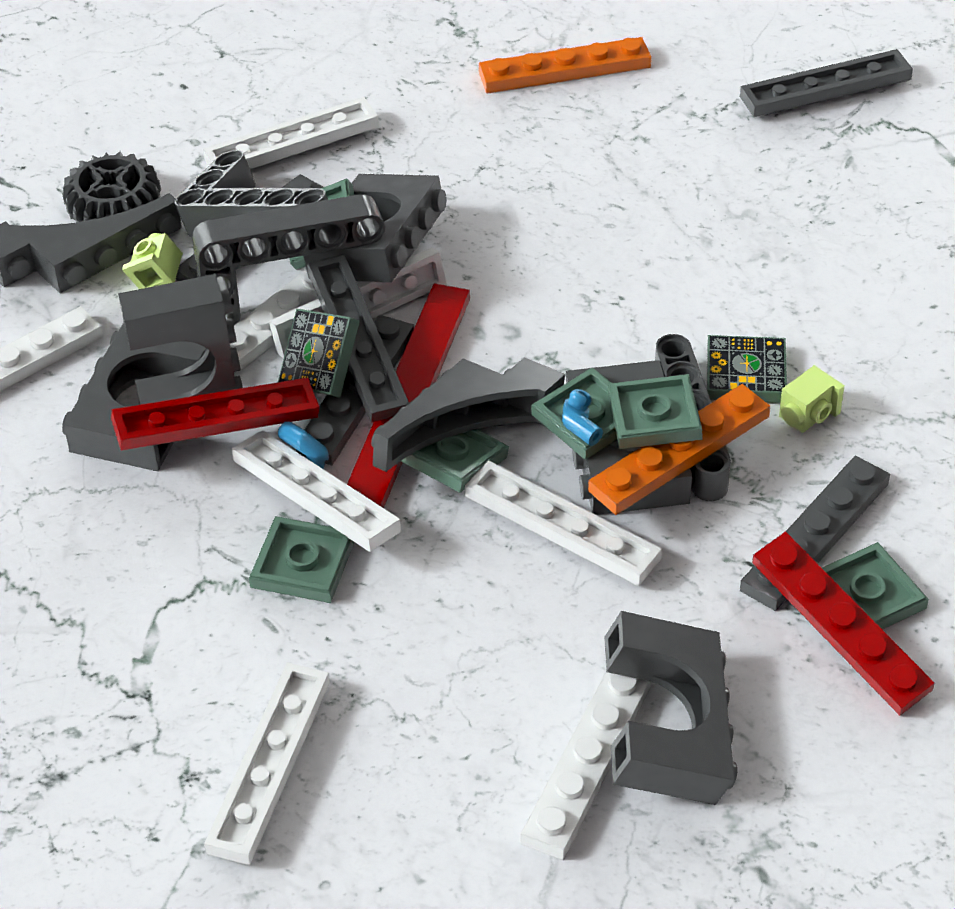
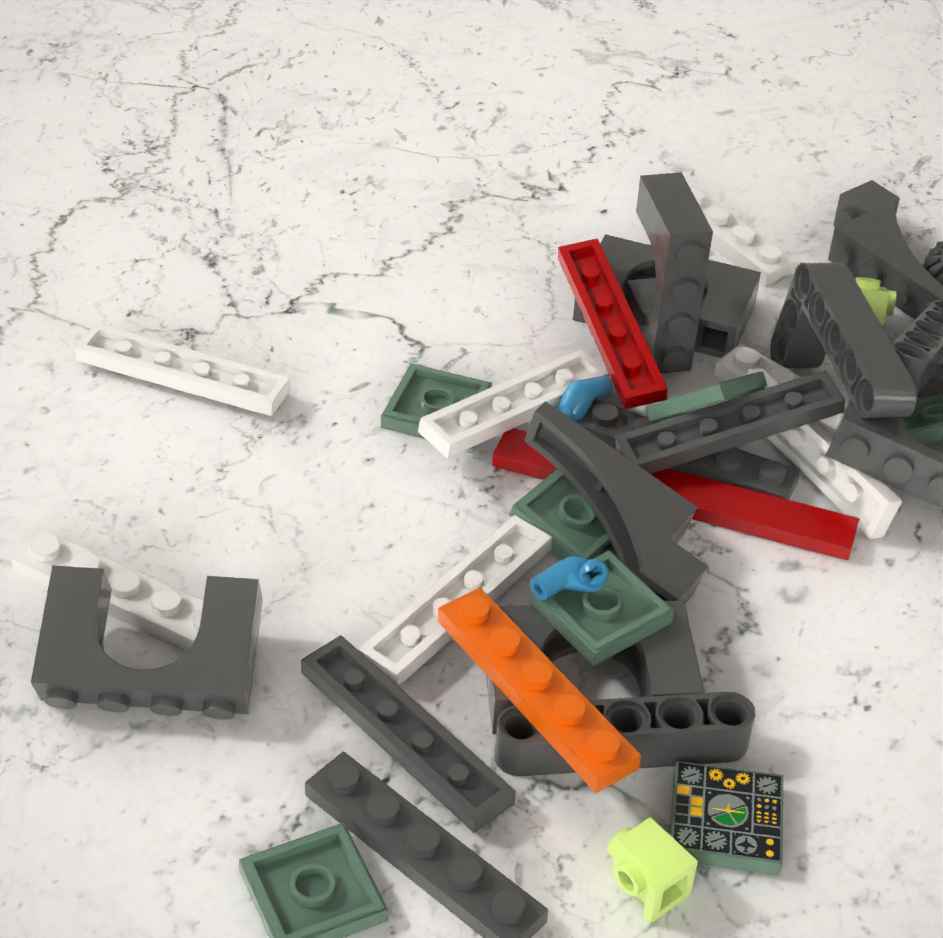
camera: 90 degrees right, 5 degrees down
(654, 411) = (577, 646): sand green tile -> none
(709, 546) = (408, 733): none -> dark grey plate
(843, 623) = (245, 836): red plate -> none

